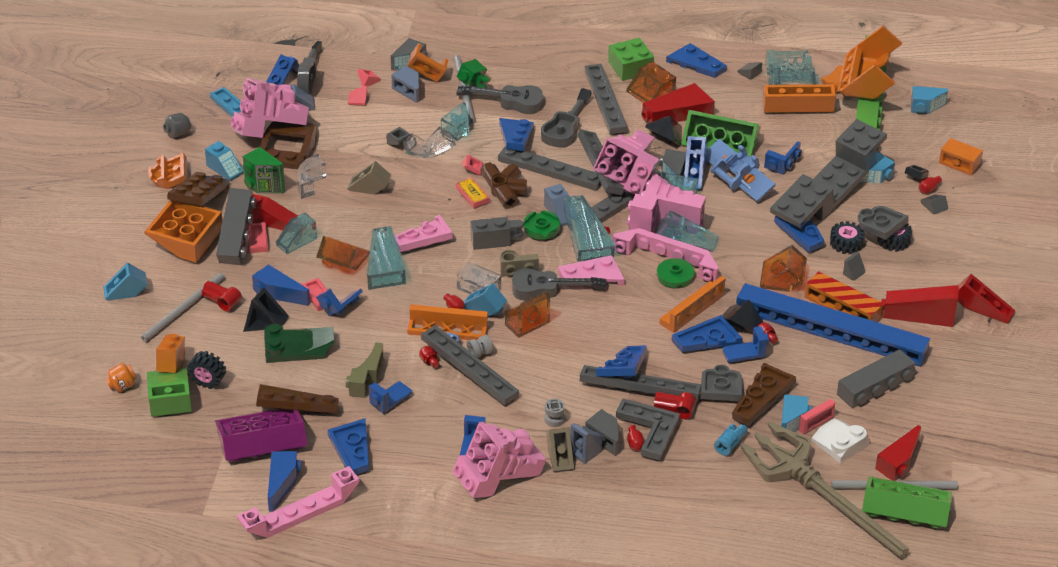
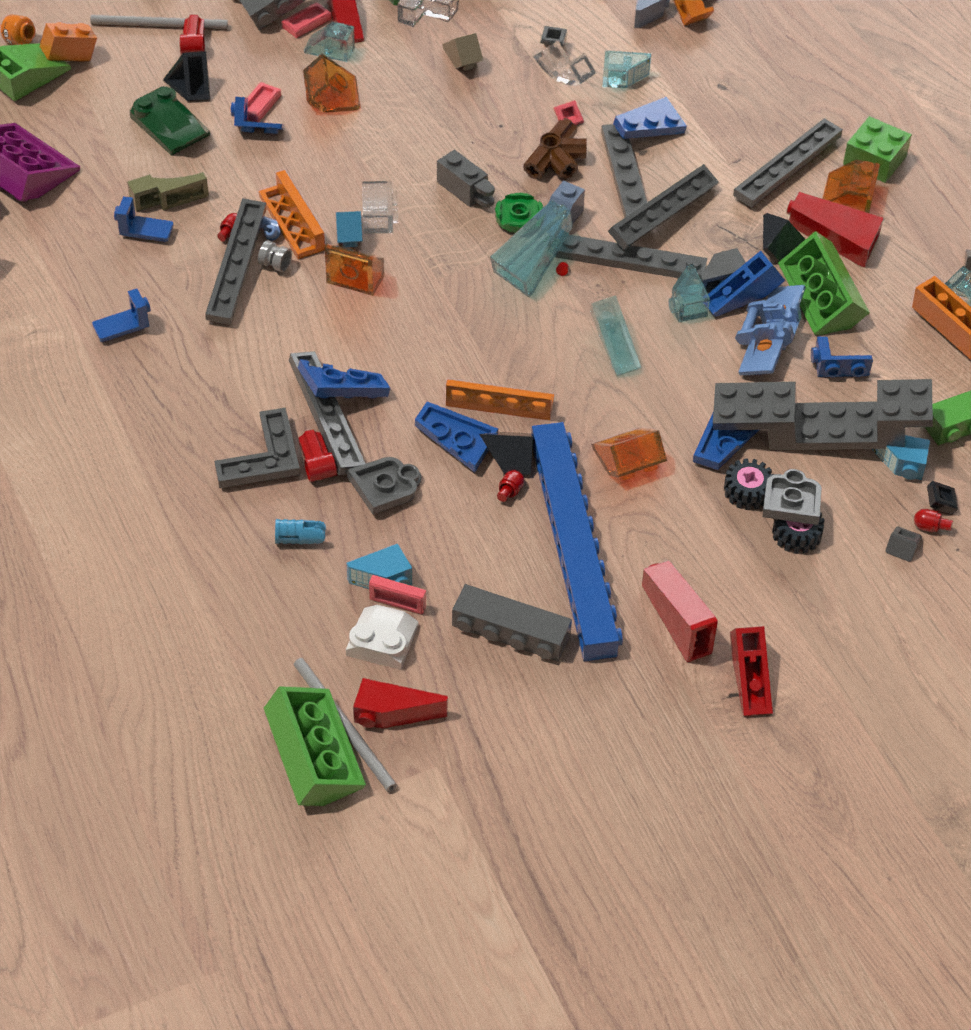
camera: 55 degrees right, 10 degrees up
(206, 369) = (66, 76): black wheel -> none
(280, 286) = (240, 62): blue slope -> none
(297, 400) = (81, 159): reddish brown wing -> none
(351, 445) = (47, 234): blue wing -> none
(384, 261) = (348, 121): clear light blue slope -> none
(425, 235) = (423, 136): bright pink wing -> none
(454, 301) = (329, 206): red cylinder -> none
(466, 98) = (690, 49): light grey piece -> none
(472, 192) = (524, 136): tile -> none
(473, 73) = (712, 40): green brick -> none
(497, 456) = (96, 348): bright pink brick -> none
(512, 262) = (428, 219): dark tan plate -> none
(521, 98) = (717, 98): dark grey piece -> none
(530, 282) = (416, 251): dark grey piece -> none
(554, 412) = (219, 363): light grey wheel -> none
(560, 449) = (166, 392): dark tan slope -> none
(561, 128) = (692, 150): dark grey piece -> none
(585, 443) = (185, 406): sand blue slope -> none
(600, 267) = (485, 292): bright pink wing -> none
(606, 426) = (222, 418): dark grey slope -> none
(628, 161) = (669, 220): bright pink brick -> none
(628, 240) = (560, 295): bright pink slope -> none
(635, 438) = (235, 447): red cylinder -> none
(660, 198) = (639, 289): bright pink brick -> none
(675, 273) = (544, 359): green plate -> none
(698, 59) = (945, 207): blue wing -> none
(748, 350) = (464, 482): blue bracket -> none
(764, 391) = (408, 529): reddish brown wing -> none
(796, 465) = (293, 612): dark tan piece -> none
(841, 297) = (627, 532): orange brick -> none
(854, 266) = (700, 514): dark grey slope -> none

